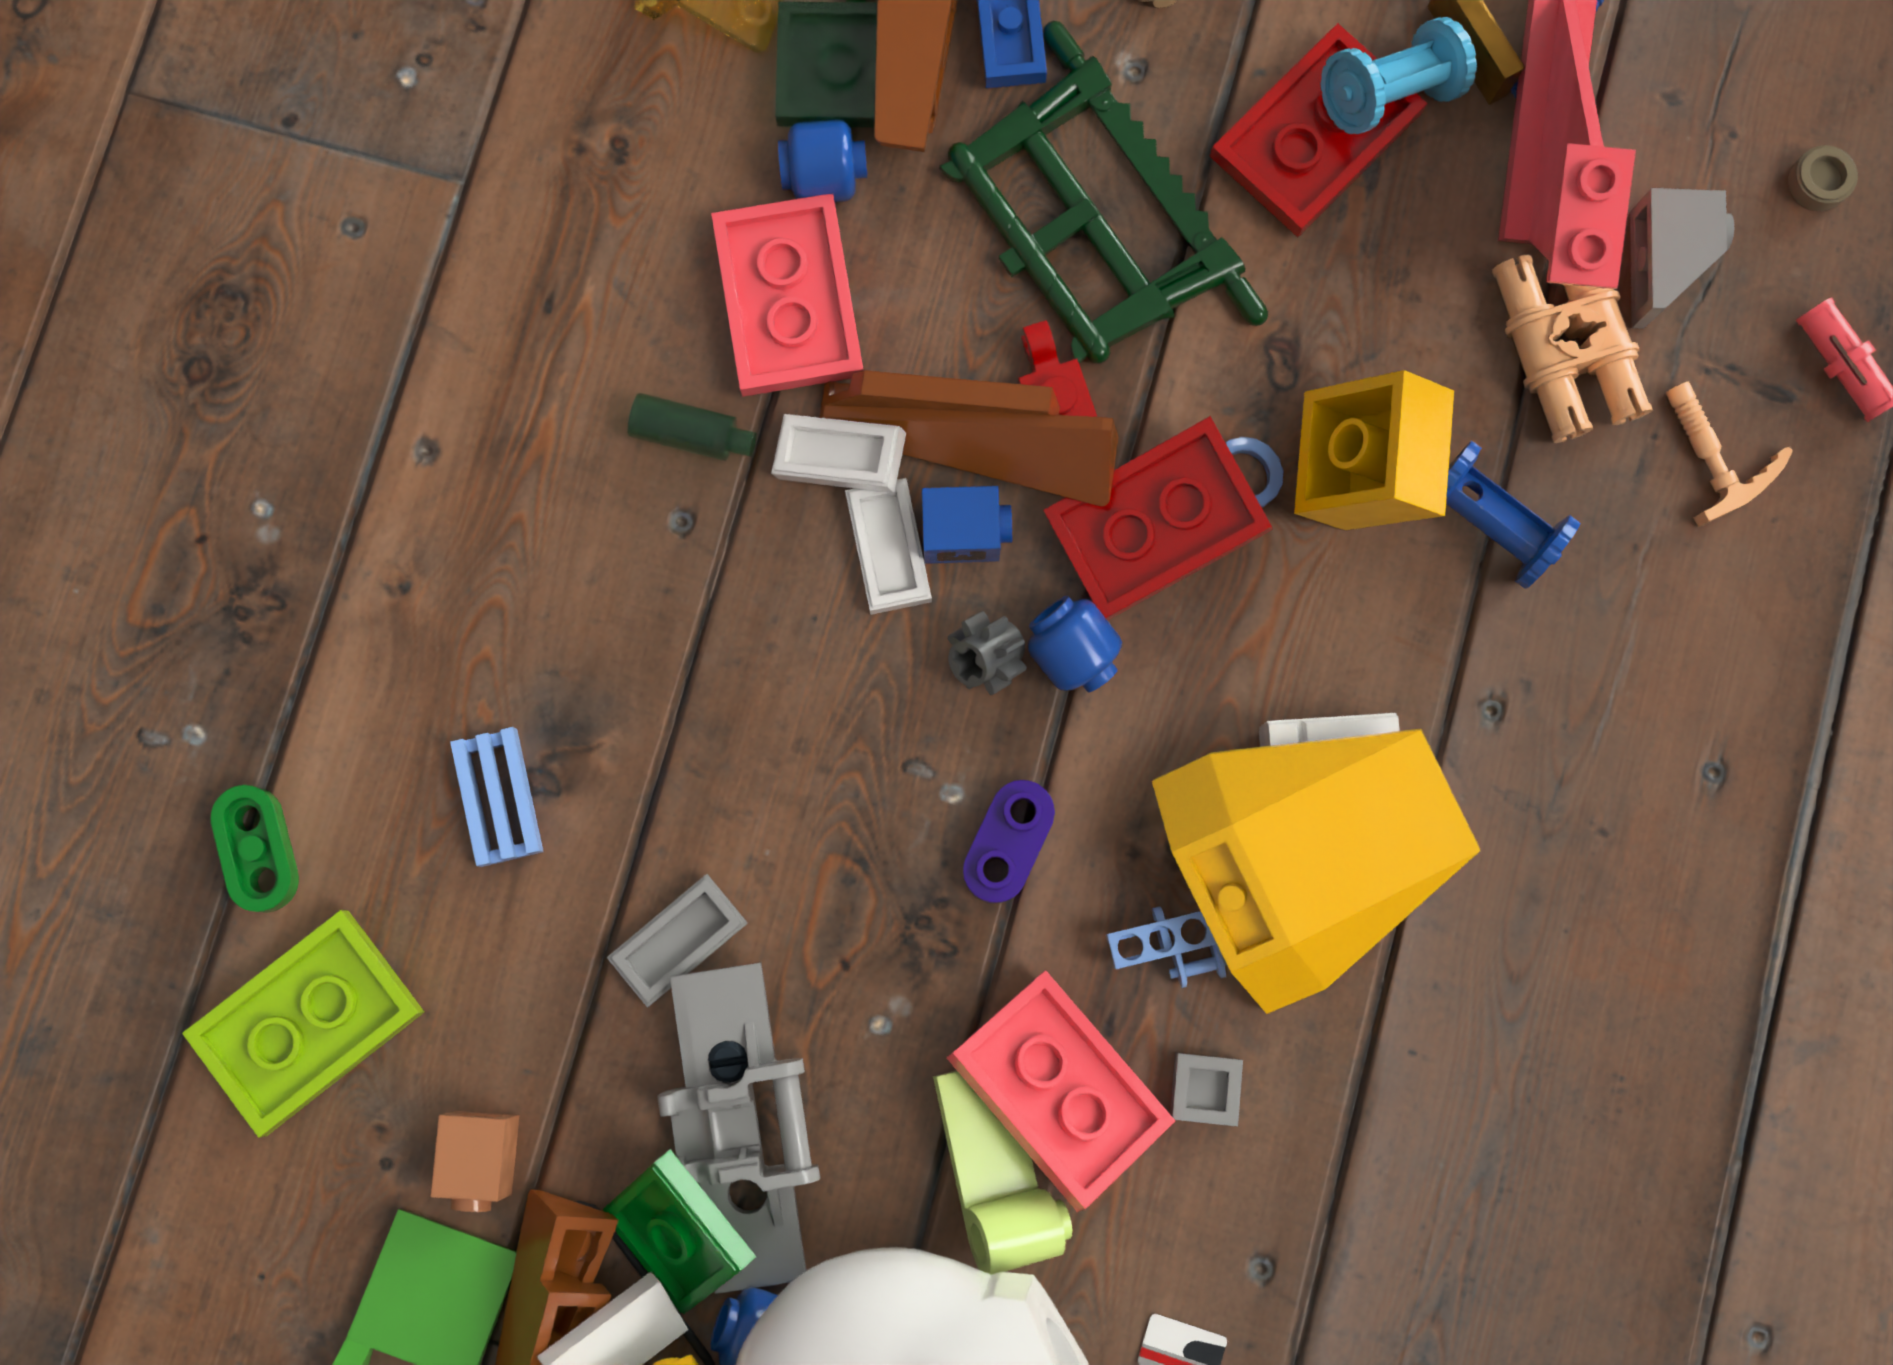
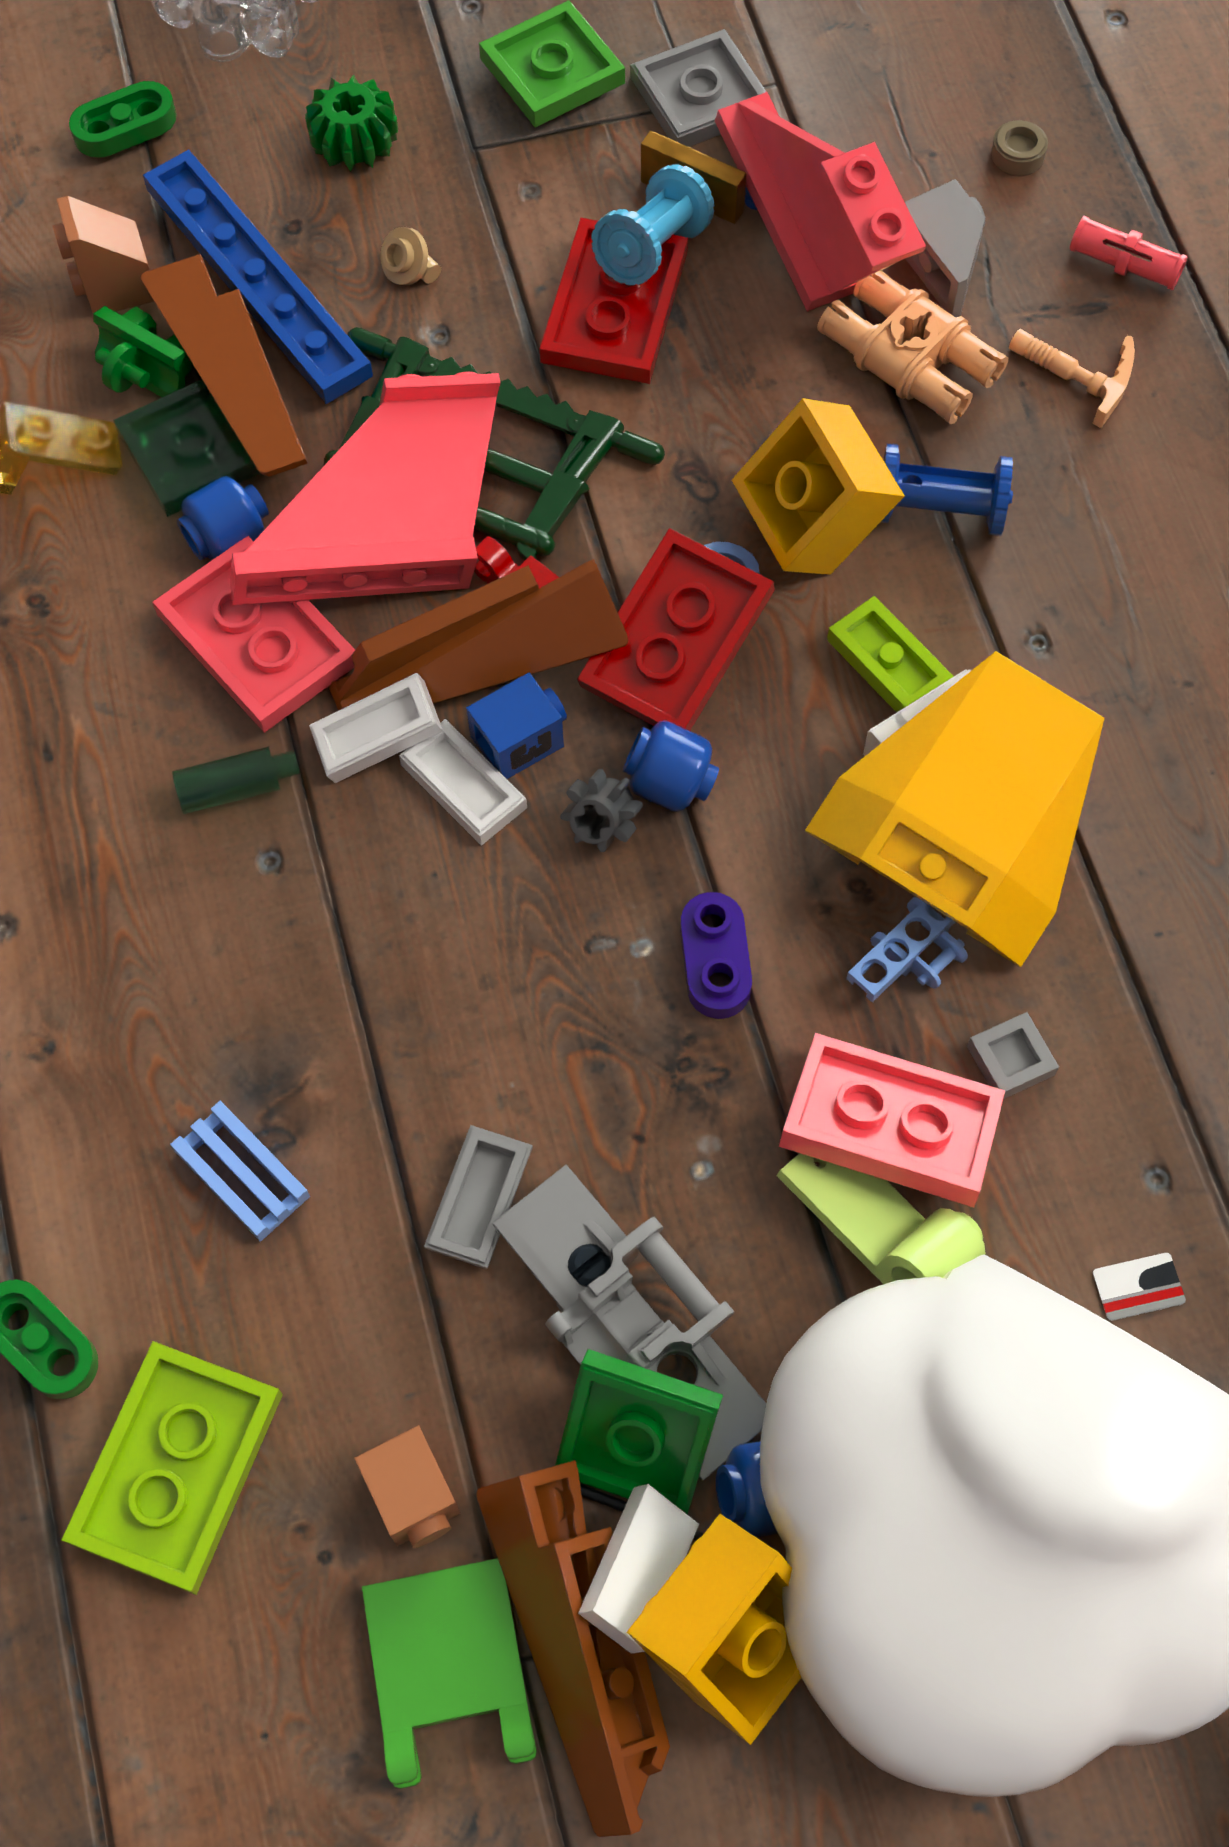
camera: 30 degrees left, 15 degrees down
(978, 235) = (389, 504): none -> coral piece
(1340, 652) = (887, 654): none -> lime plate

